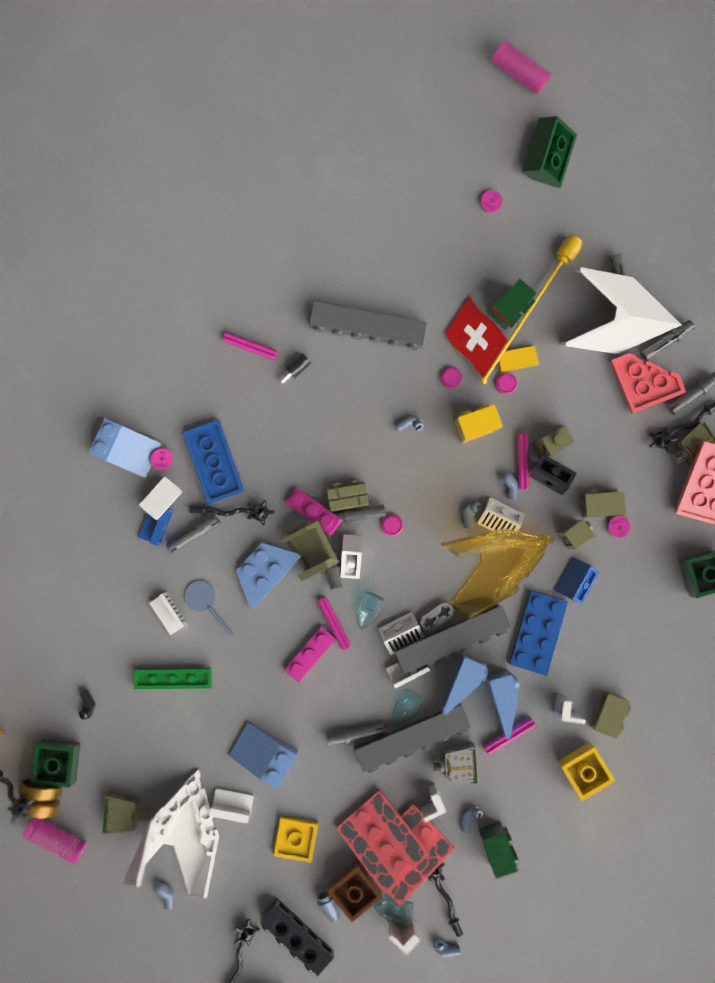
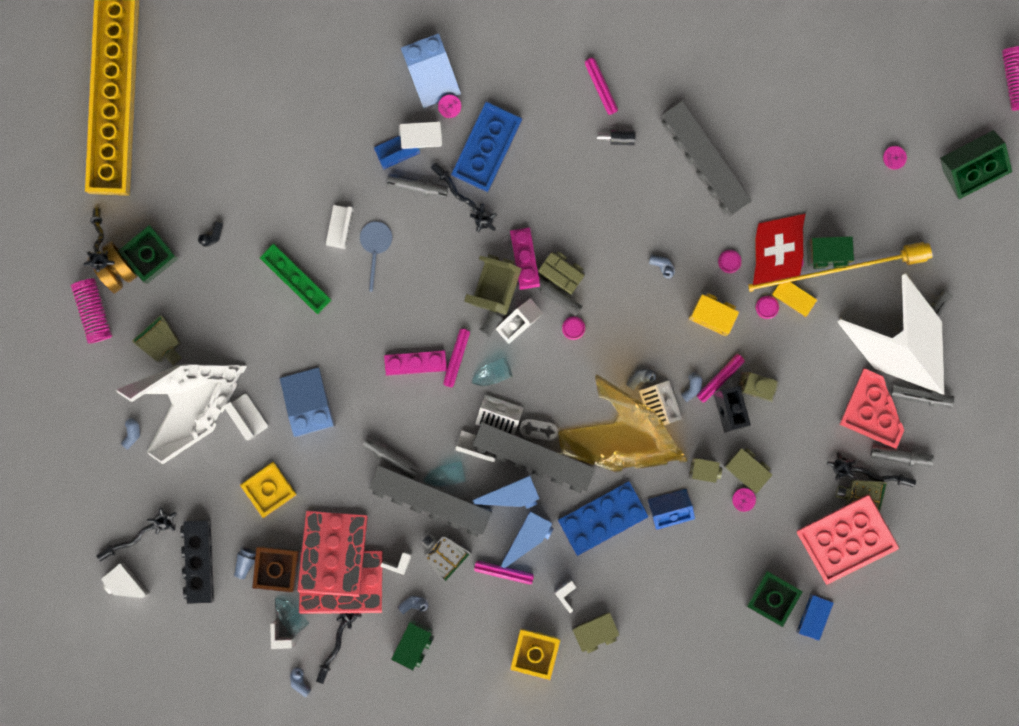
camera: 45 degrees right, 0 degrees up
(264, 570) = (443, 266): medium blue wing -> none

